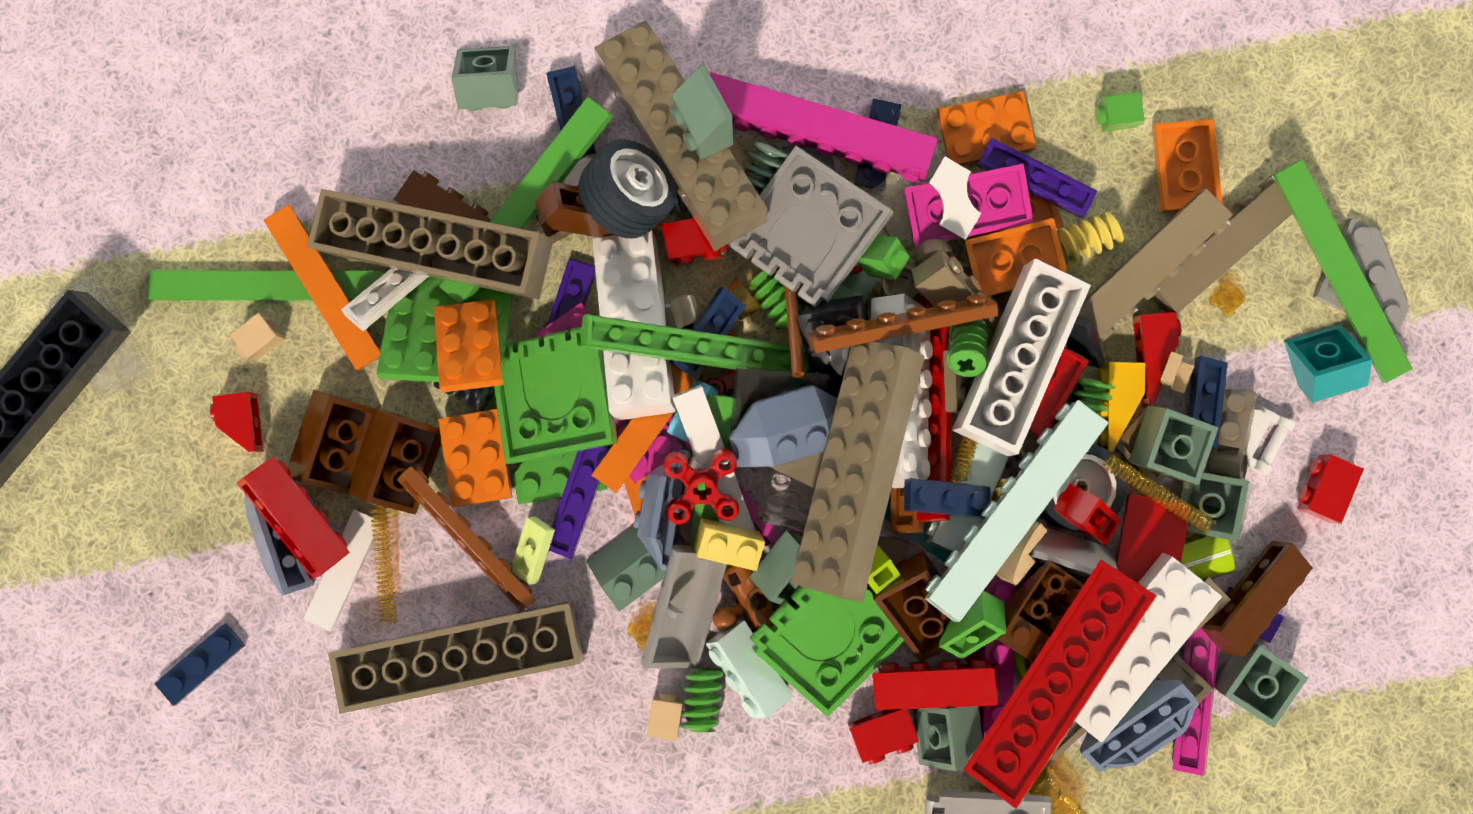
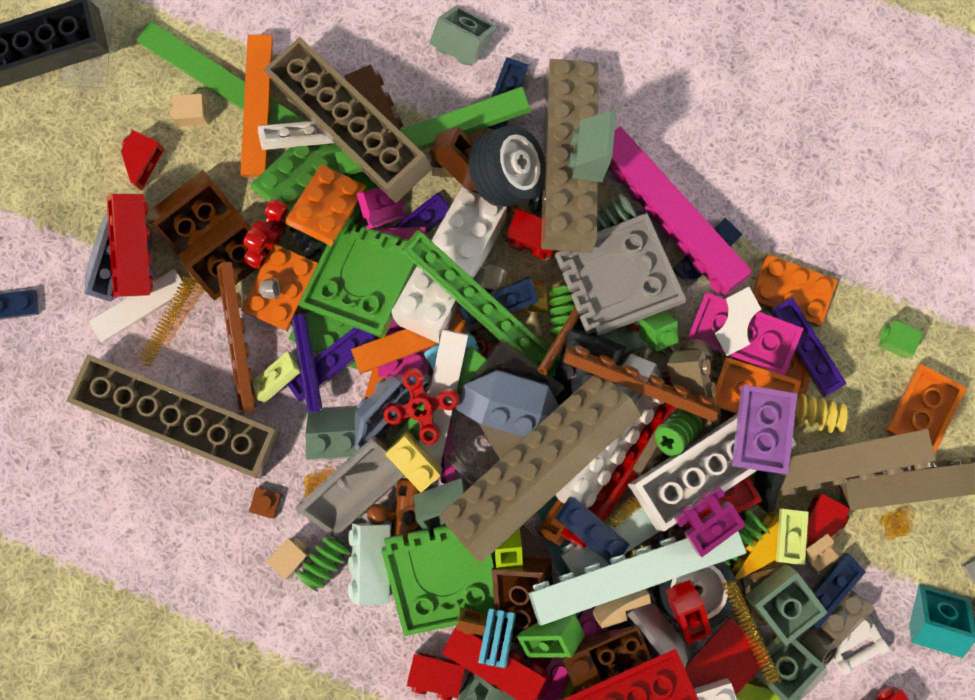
camera: 40 degrees right, 5 degrees down
(425, 414) = (265, 233): none -> red gear
(467, 467) = (270, 288): none -> light grey hinge
(522, 314) = (379, 208): none -> dark pink plate
(555, 516) = (307, 363): none -> dark purple axle
(605, 680) = (265, 503): none -> dark orange plate
(884, 660) = (471, 621): none -> dark orange plate
(921, 661) = (488, 634): none -> medium azure tile
(1052, 291) = (764, 429): none -> medium lavender plate
(1064, 419) = (715, 527): none -> magenta plate
(1139, 376) = (792, 536): none -> yellowish green plate

